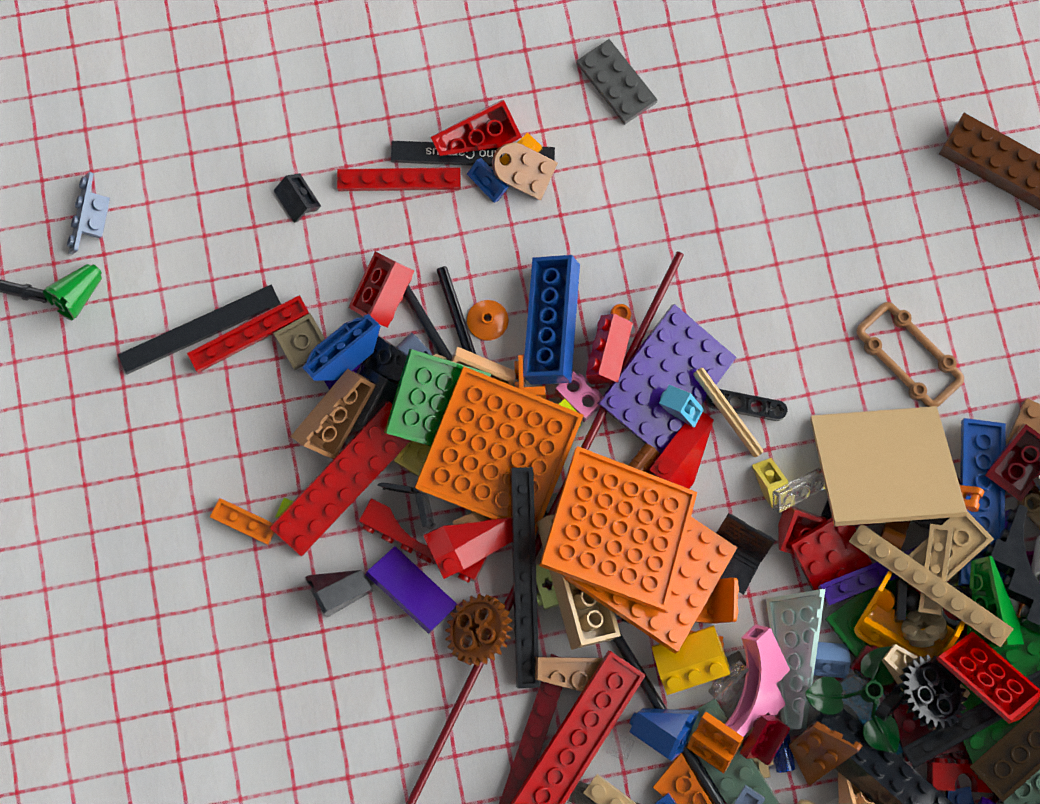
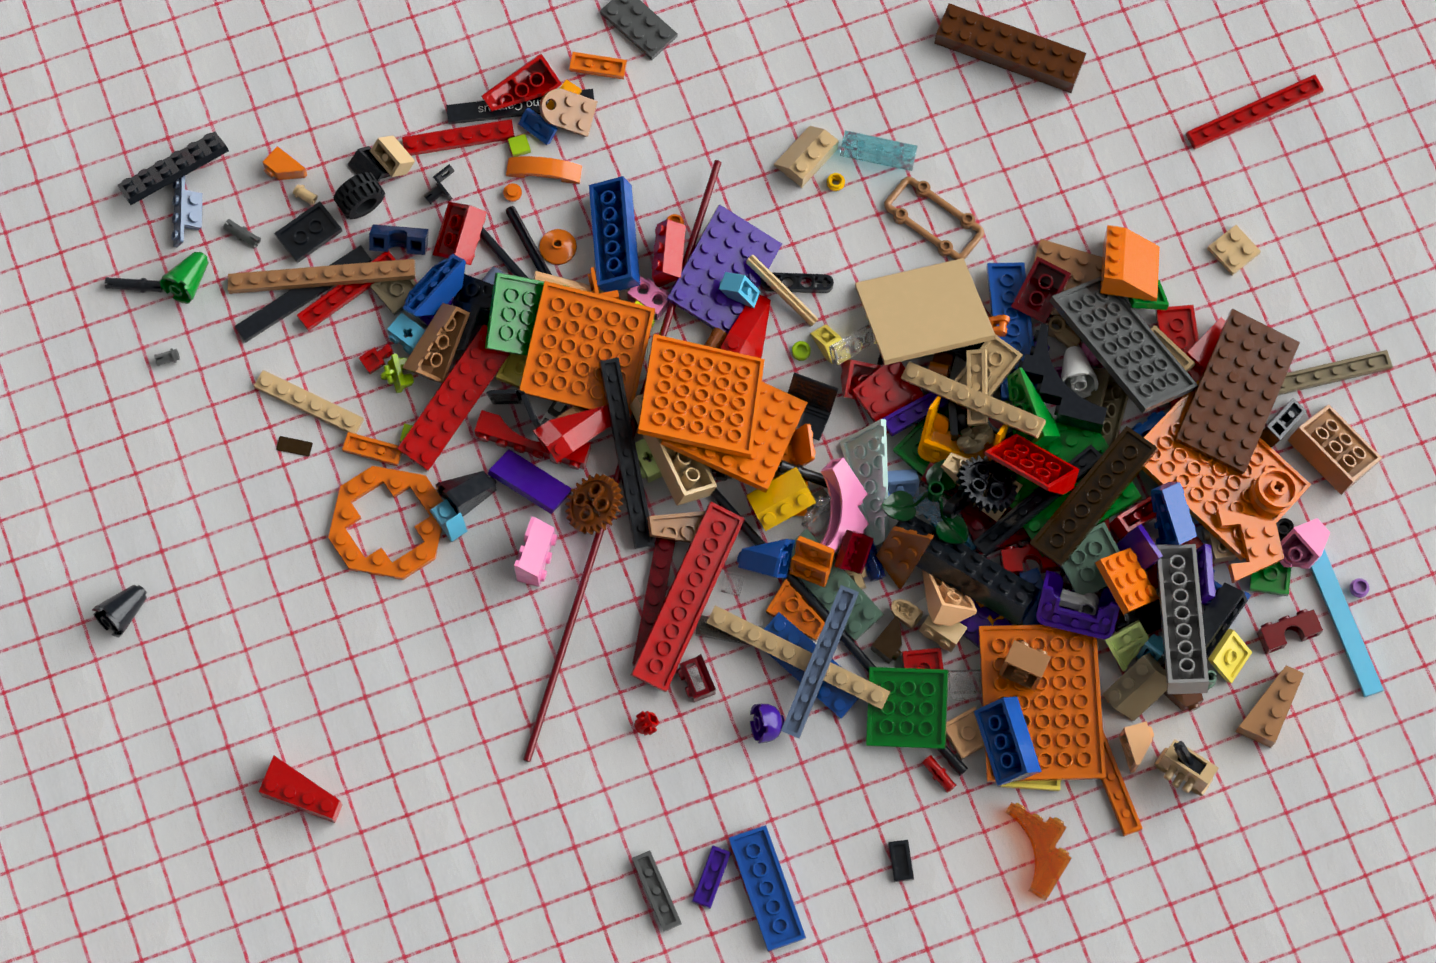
camera: 10 degrees left, 5 degrees down
(43, 377) = (167, 357): none -> dark grey pin
(81, 165) = (172, 168): none -> black plate
(144, 250) = (241, 233): none -> dark grey pin
(159, 502) = (294, 446): none -> dark brown sticker
(183, 455) = (308, 402): none -> tan plate
(201, 181) = (283, 166): none -> orange slope
(202, 593) = (346, 515): none -> orange plate
(216, 260) = (308, 232): none -> black plate
(220, 217) = (301, 192): none -> tan pin
(222, 313) = (321, 276): none -> medium nougat plate
(263, 417) = (374, 360): none -> red plate
(277, 229) = (359, 195): none -> black tyre
(286, 429) = (394, 374): none -> lime hips
(297, 388) = (405, 326): none -> medium azure brick
(298, 280) = (385, 237): none -> dark blue arch
(313, 619) = (449, 520): none -> medium azure slope
(322, 189) = (392, 156): none -> tan brick
(368, 235) = (439, 189): none -> black bracket
(405, 676) = (535, 553): none -> bright pink wedge
(447, 250) = (512, 192): none -> orange plate
(448, 515) = (554, 410): none -> sticker
(464, 198) = (519, 145): none -> lime tile
(487, 228) = (544, 167): none -> orange slope
(564, 122) = (598, 65): none -> orange plate
(724, 634) = (808, 475): none -> black pin
(738, 484) = (801, 351): none -> lime tile
(779, 259) = (807, 155): none -> tan slope
(809, 290) = (835, 177): none -> yellow plate
(860, 268) = (878, 150): none -> clear light blue brick

